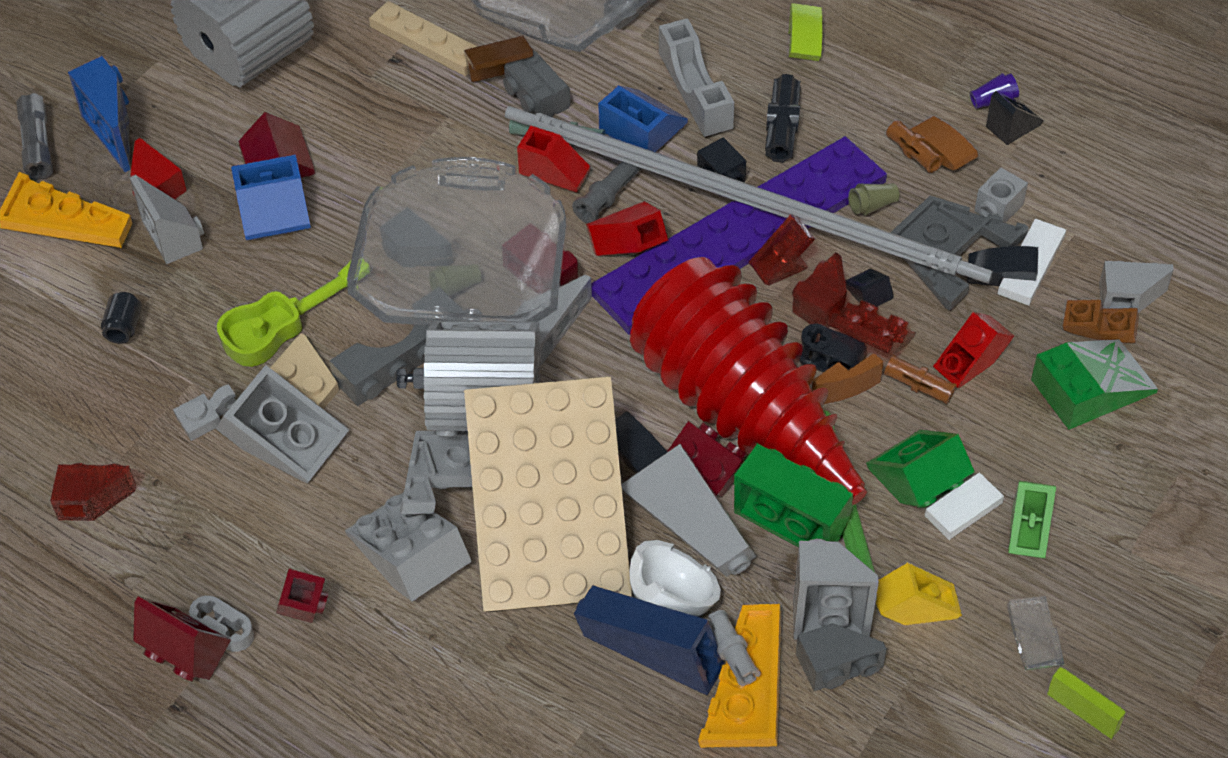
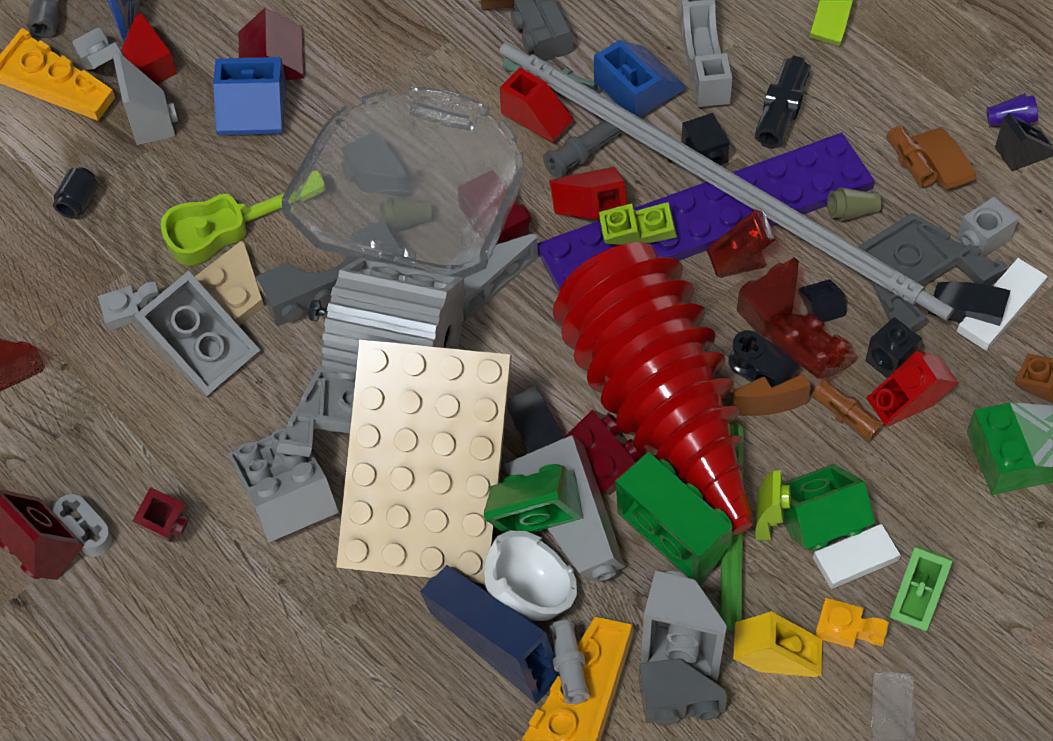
camera: 15 degrees right, 5 degrees up
(100, 181) = (94, 48): none -> light grey bracket
(662, 508) = (534, 500): none -> green slope
(669, 251) = (646, 225): none -> lime slope
(877, 472) = (770, 504): none -> lime slope
(946, 316) = (892, 347): none -> black brick
(970, 567) = (844, 624): none -> light orange plate

